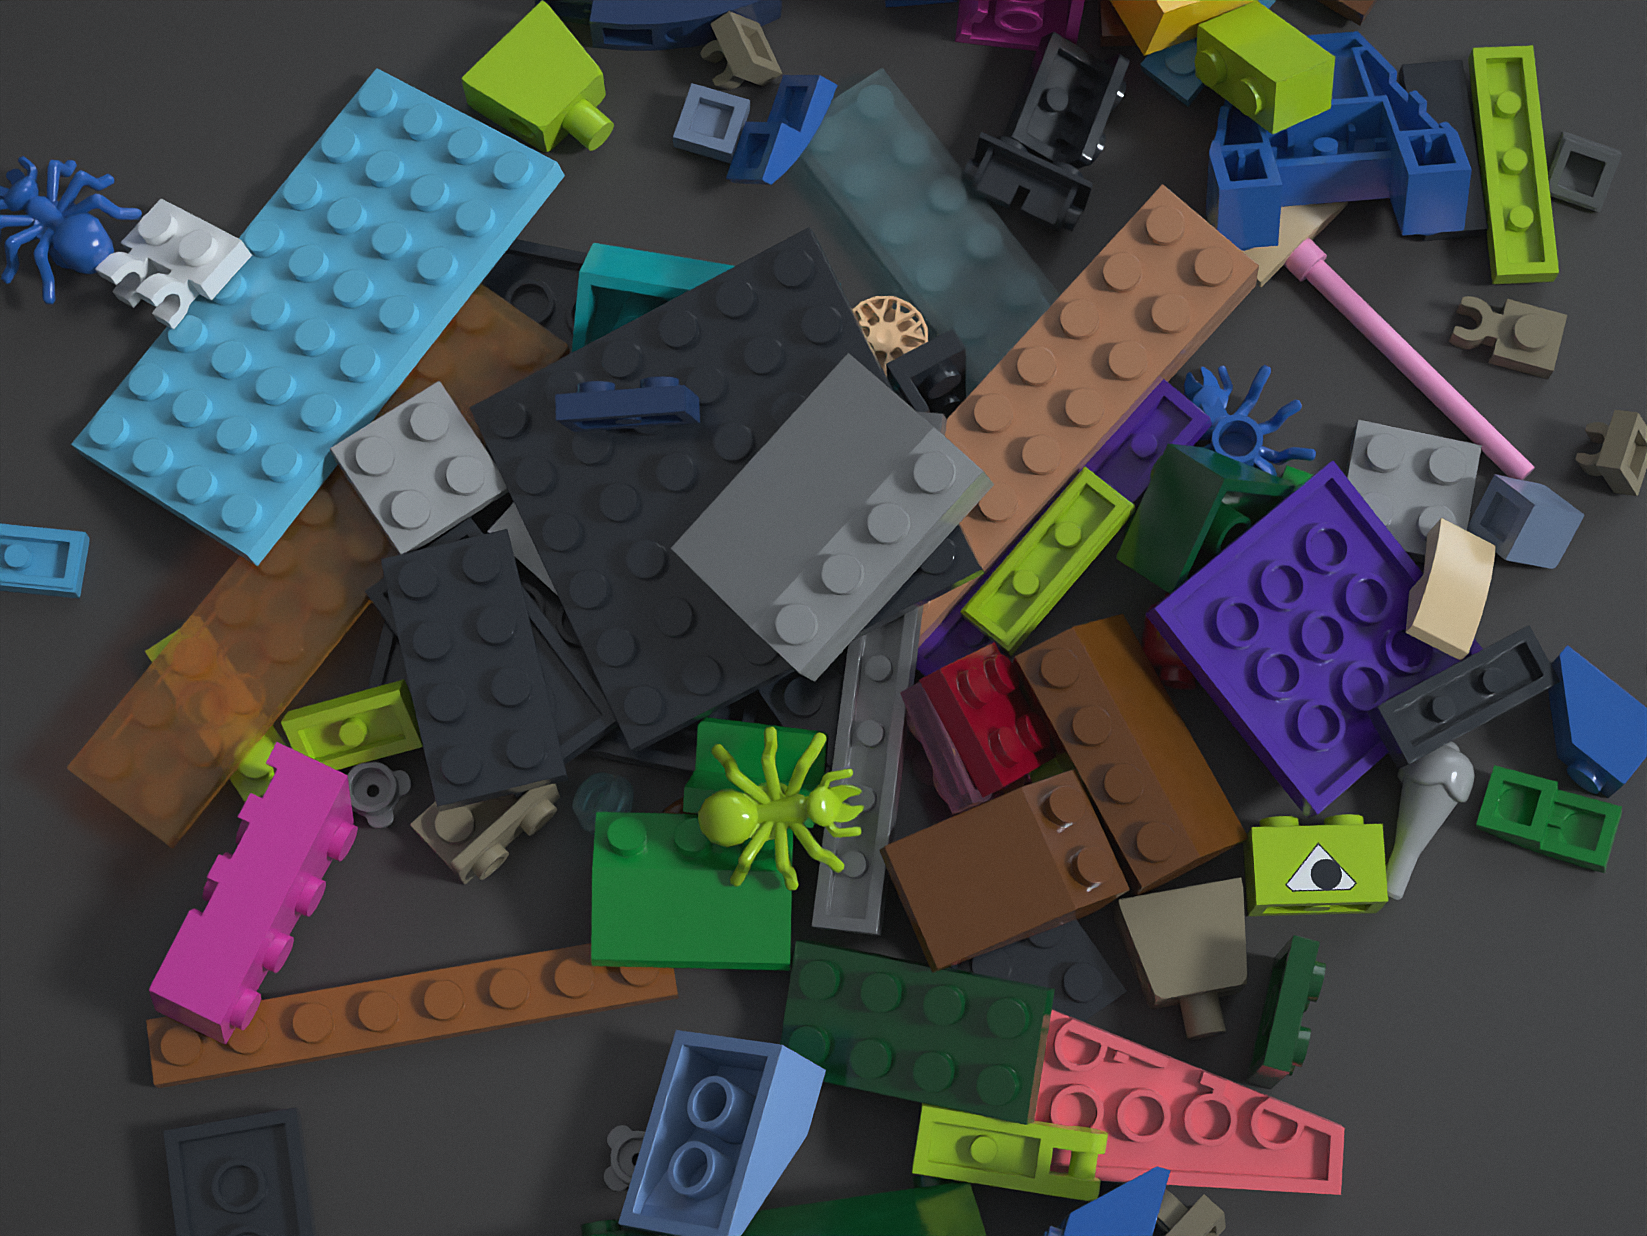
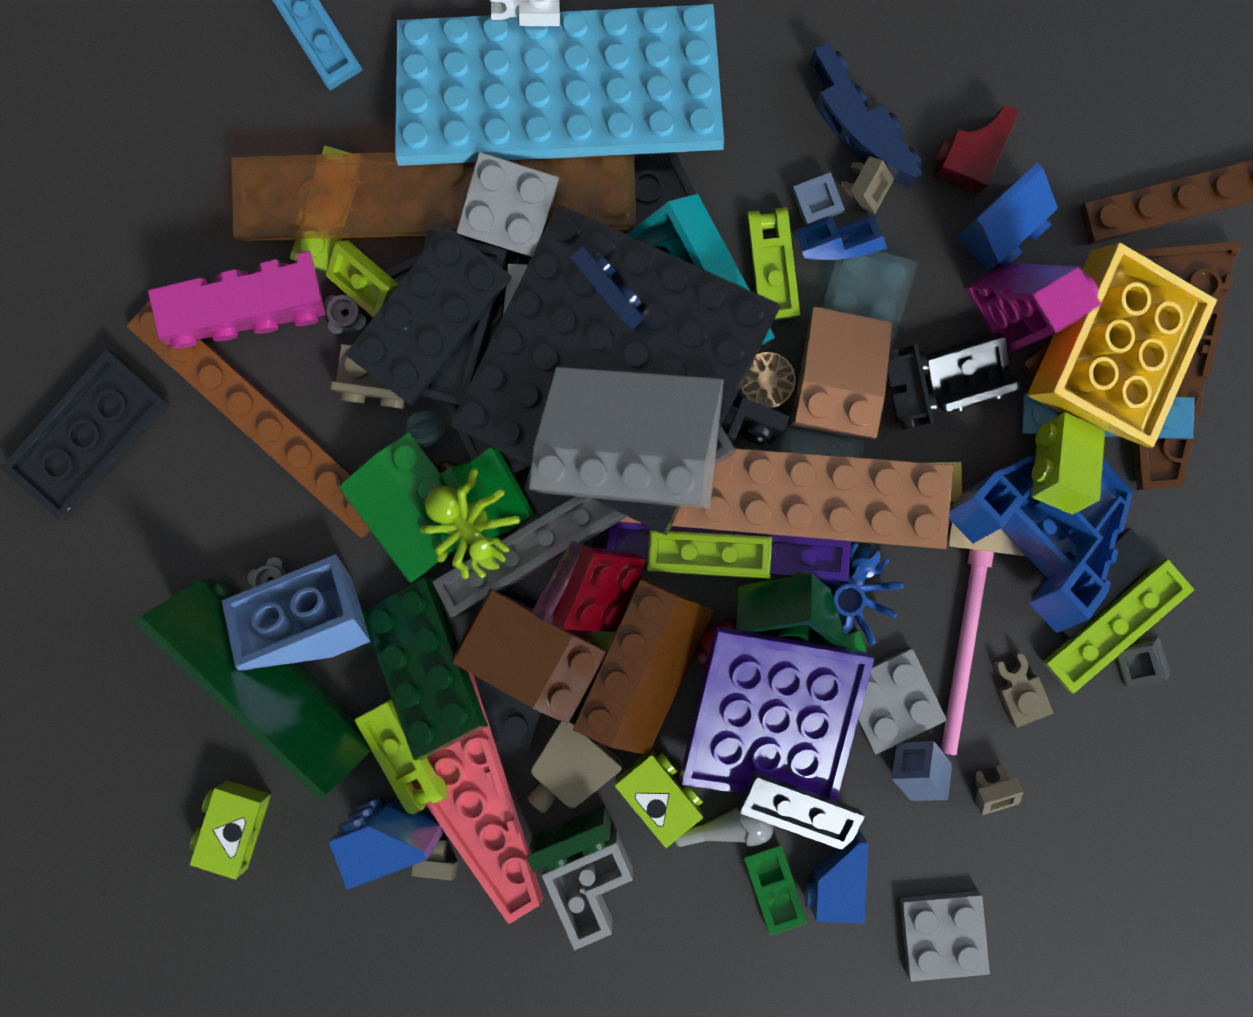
camera: 55 degrees right, 15 degrees up
(540, 84) = (769, 95): lime torso -> none
(737, 225) = (774, 261): none -> lime plate
(952, 245) = (842, 374): none -> nougat slope
(1352, 1054) = (579, 887): none -> light grey brick
(1453, 590) = (851, 767): tan slope -> none

